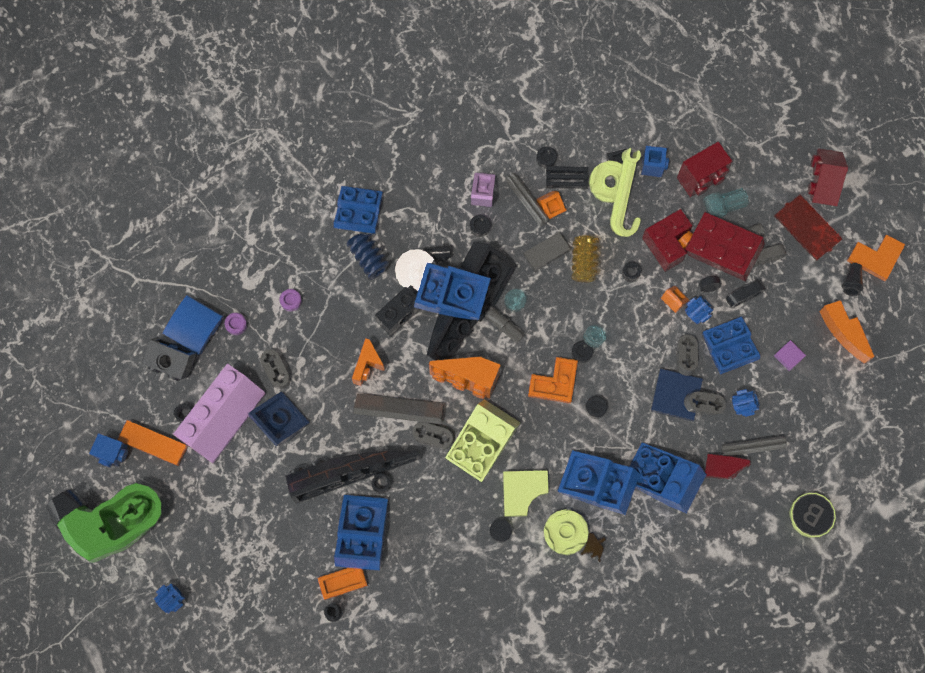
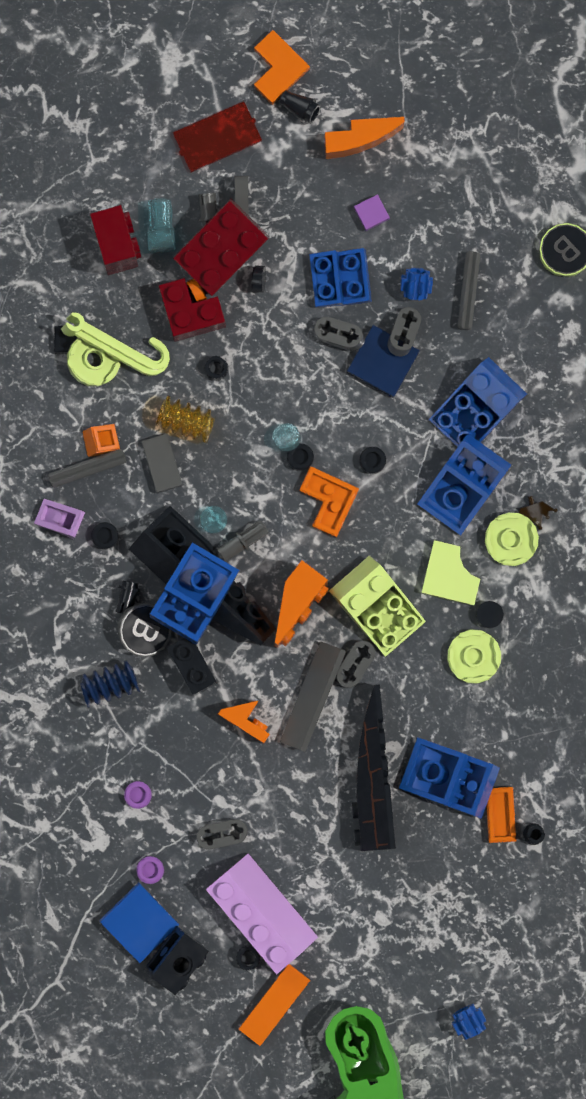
camera: 80 degrees left, 10 degrees up
(108, 451) = (272, 1058): blue brick -> none
(279, 419) = (287, 843): dark blue slope -> none
(358, 209) = (42, 682): blue slope -> none
(384, 477) = (388, 740): black axle -> none
(463, 527) = (474, 656): none -> yellowish green tile
(546, 157) = (37, 428): black tile -> none
(567, 173) = (77, 389): black tile -> none
(654, 161) = (85, 297): blue brick -> none
(674, 298) = (264, 326): orange slope -> none
(699, 309) = (288, 302): blue gear -> none
(724, 466) = (484, 332): dark red slope -> none
(745, 294) = (283, 240): black beam -> none
(830, 173) = (163, 92): dark red brick -> none

